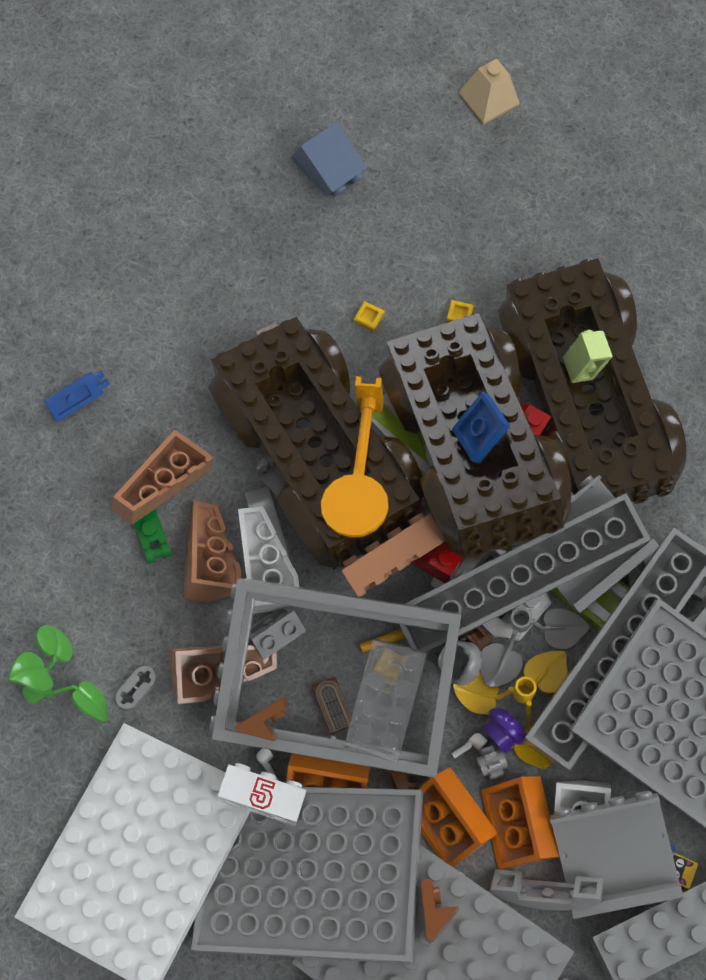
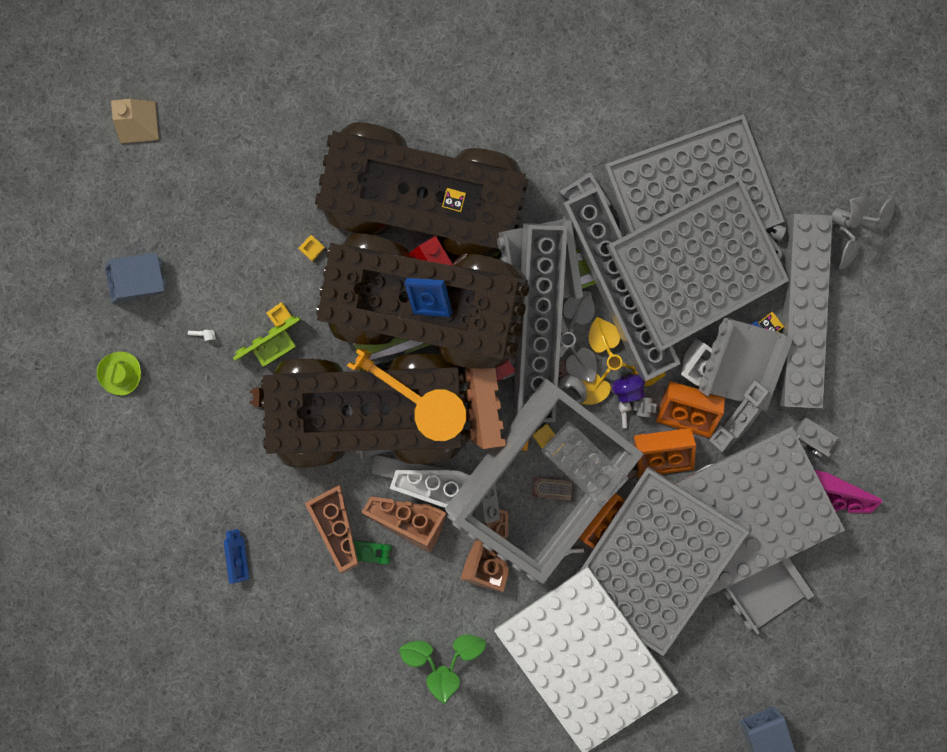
camera: 60 degrees left, 20 degrees up
(140, 693) = (478, 609): light grey beam -> none
(220, 194) = (119, 373): none -> lime hat
(258, 724) = (552, 549): dark orange slope -> none
(262, 794) = (595, 568): white brick -> none
(308, 257) = (208, 334): none -> white hand
(334, 319) = (271, 346): none -> lime bracket
(435, 918) = (729, 500): dark orange slope -> none
(587, 356) = (405, 185): yellowish green brick -> none
(601, 420) = (453, 199): none -> tile

